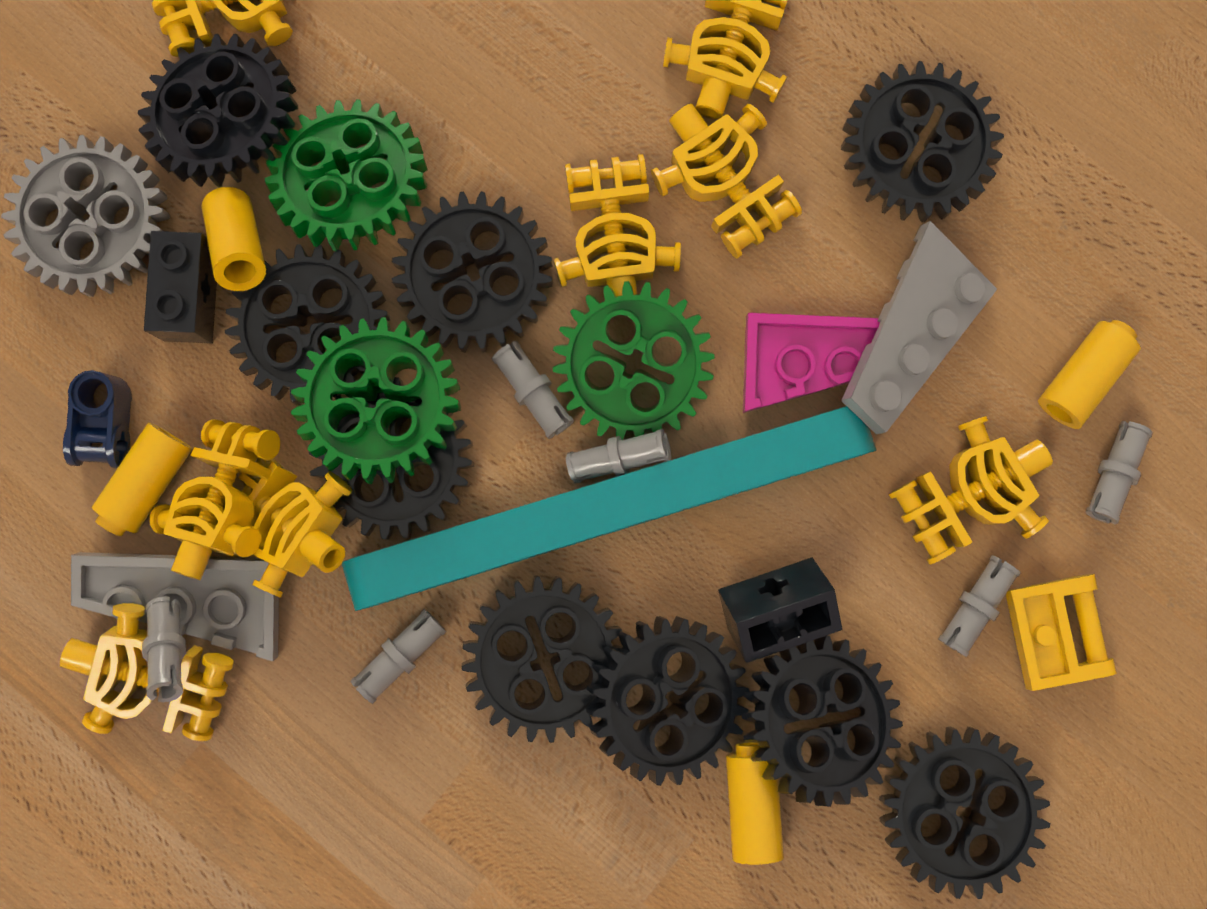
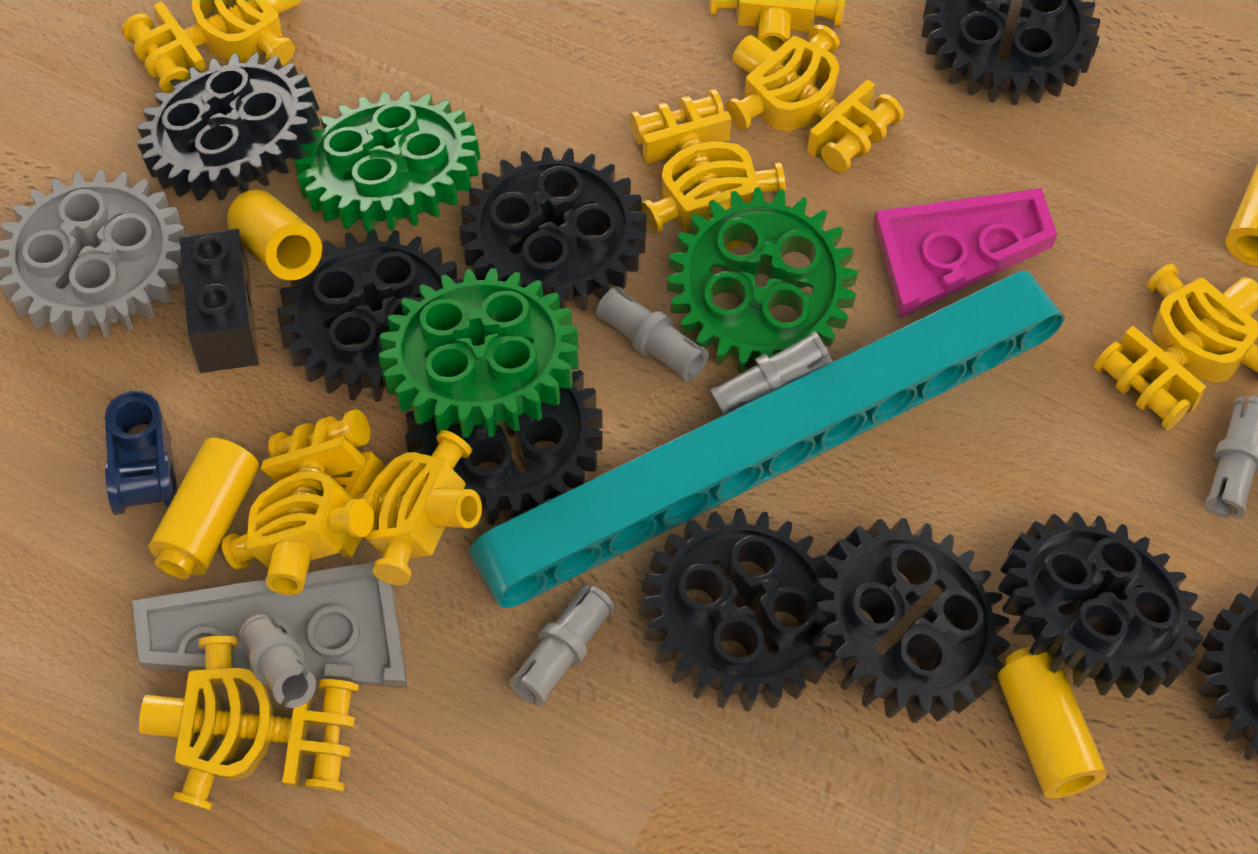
camera: 10 degrees left, 25 degrees down
(780, 609) = (1010, 492): black brick -> none
(925, 318) = (1067, 190): light grey wing -> none

